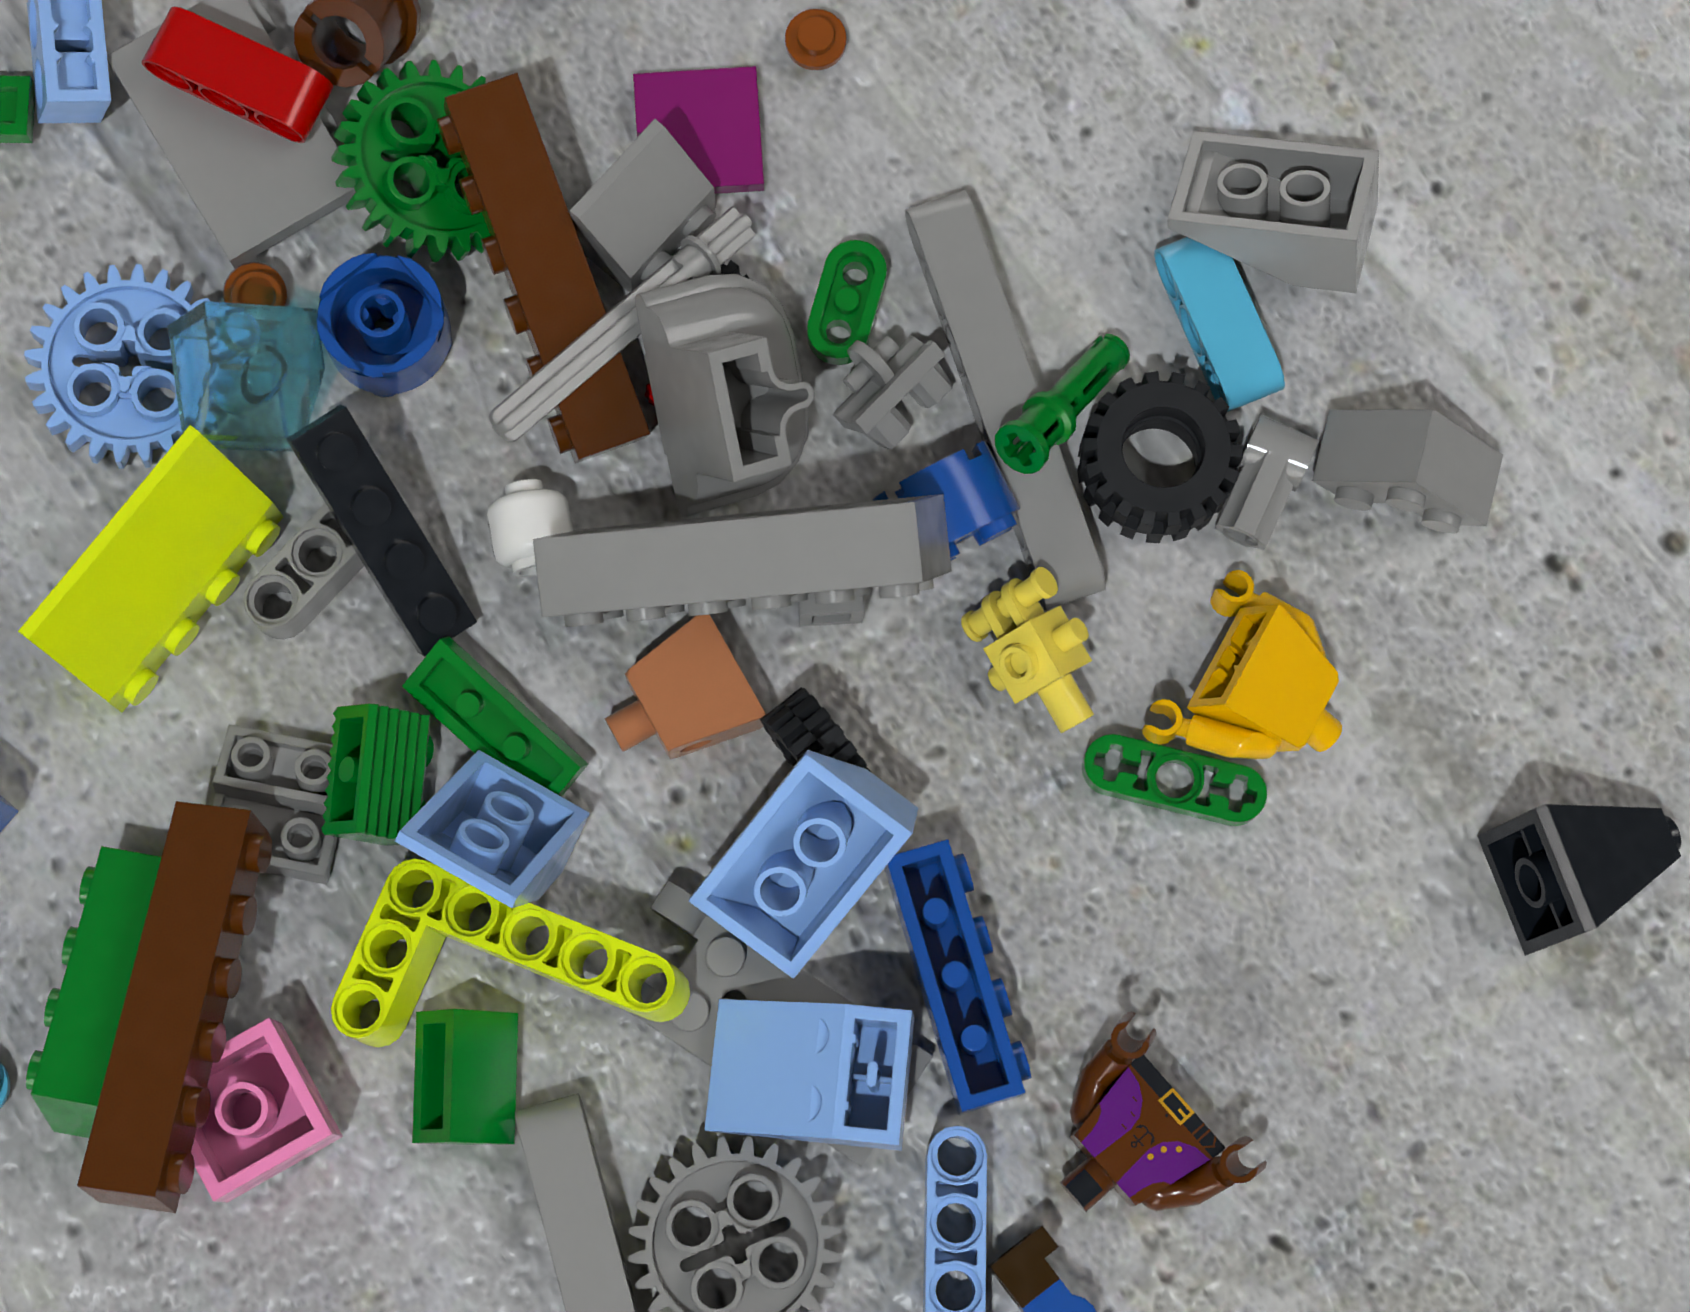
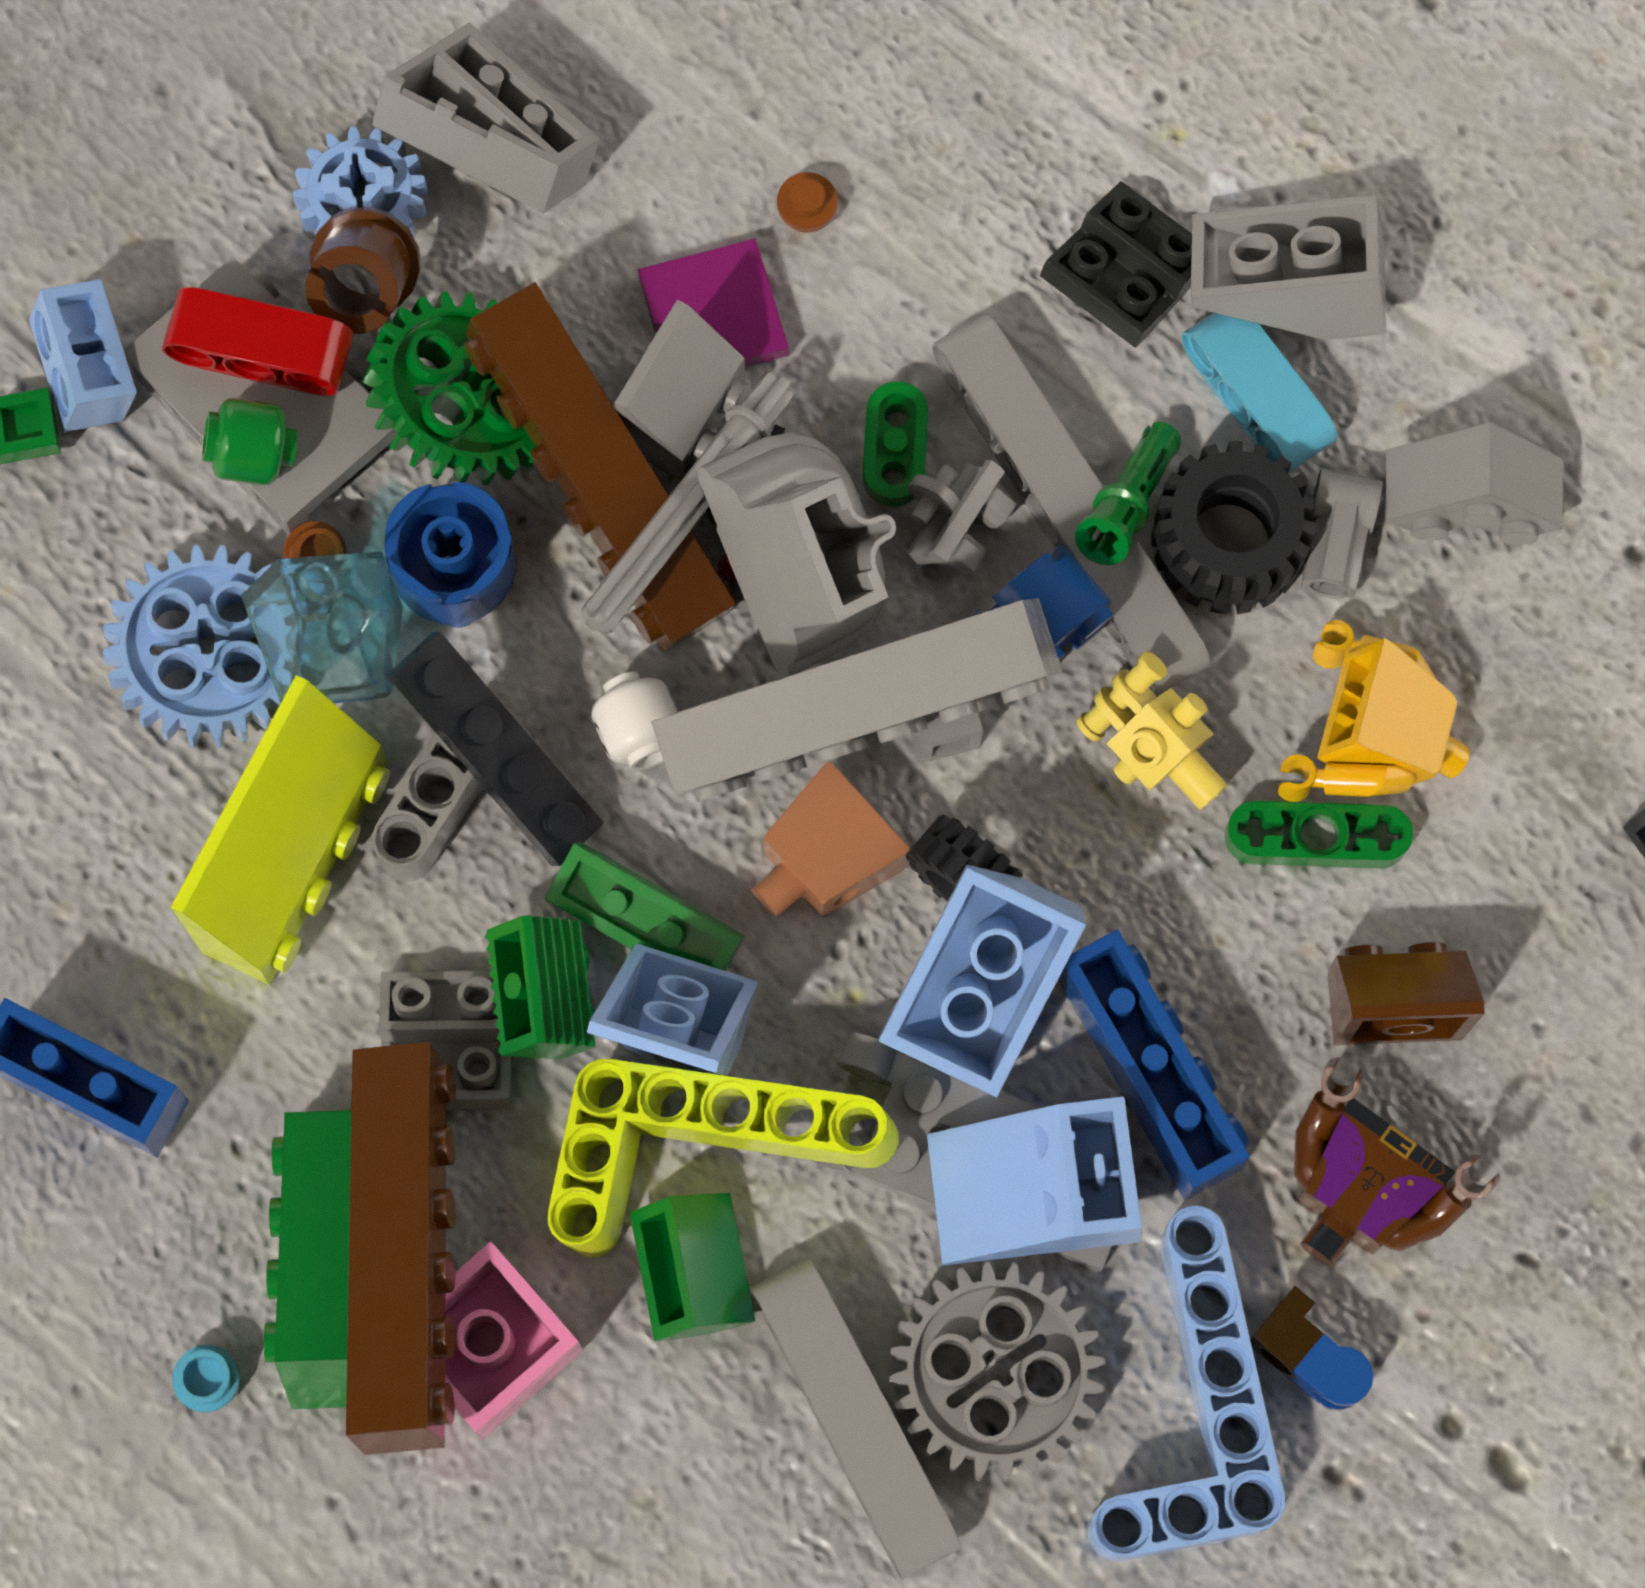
camera: 10 degrees left, 5 degrees down
(206, 174) = (248, 441): none -> green head
(1114, 166) = (1124, 264): none -> pearl dark grey slope
(1217, 959) = (1403, 995): none -> reddish brown slope

